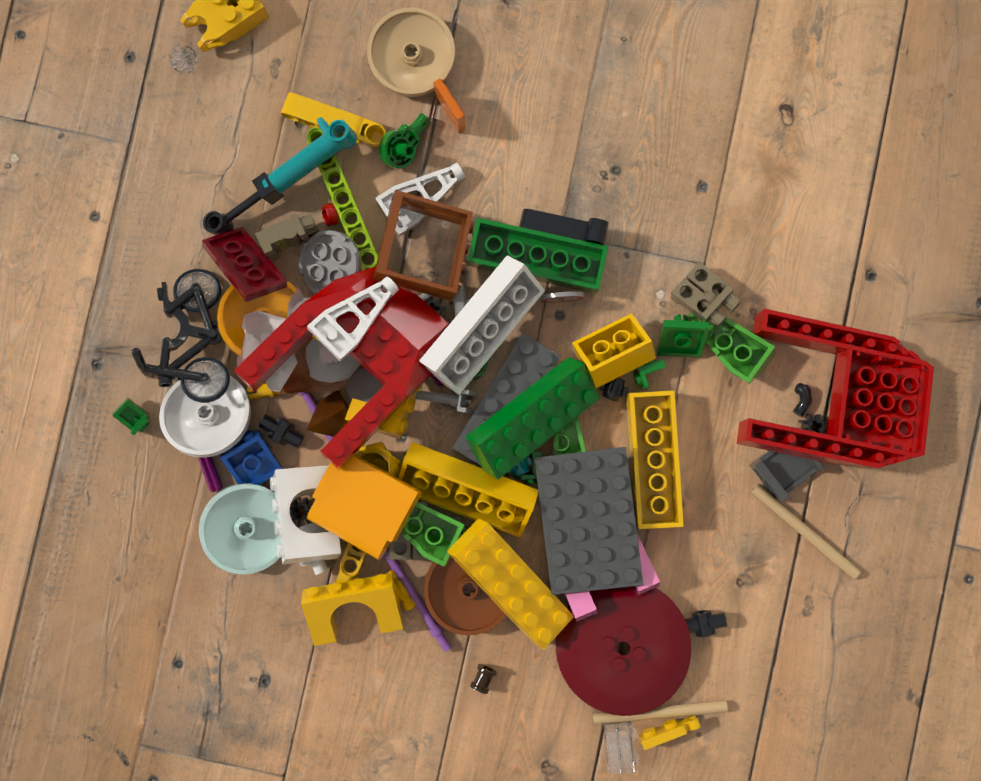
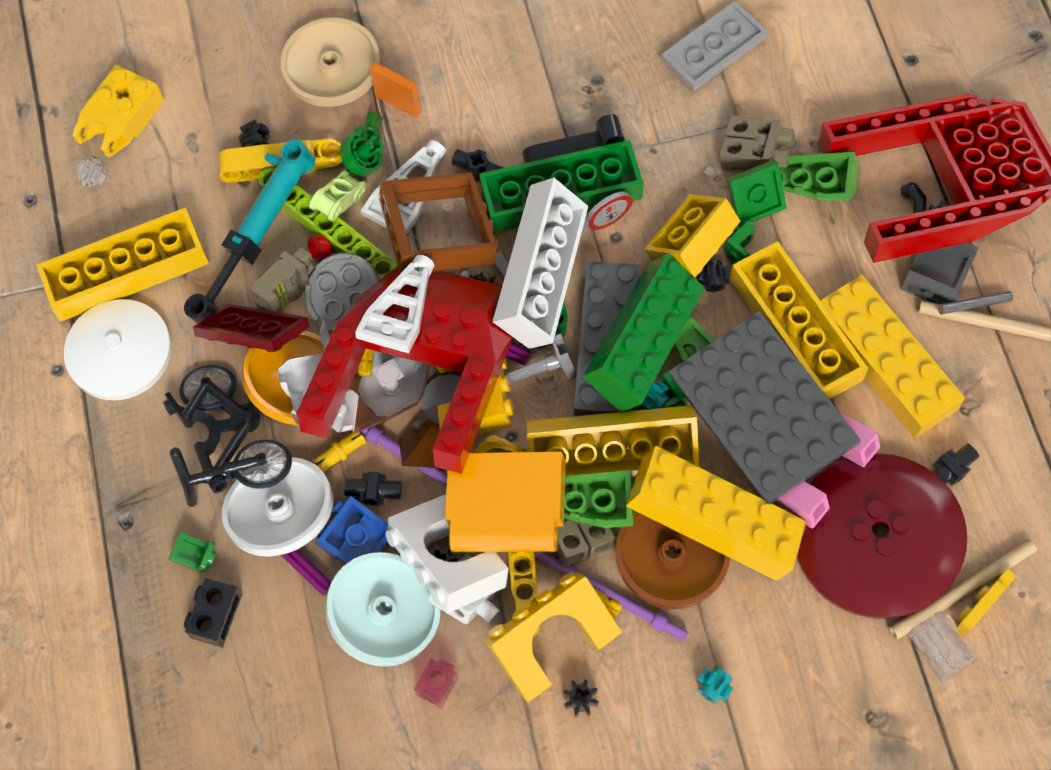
camera: 20 degrees left, 20 degrees down
(131, 473) = (220, 613): none -> black brick
(145, 223) = (117, 349): none -> white dish
(173, 156) = (122, 264): none -> yellow brick
(250, 599) = (432, 694): none -> clear pink brick
(322, 90) = (254, 134): none -> black gear
(348, 662) = (584, 690): none -> black gear
(361, 180) = (338, 195): none -> yellowish green piece
(449, 695) = (715, 684): none -> teal gear
(476, 195) = (474, 162): none -> black axle
(483, 678) = (743, 648): dark brown bush -> none
(708, 519) = (895, 360): none -> yellow brick
(722, 187) = (714, 45): none -> light grey plate
(794, 507) = (976, 302): none -> flat silver bar

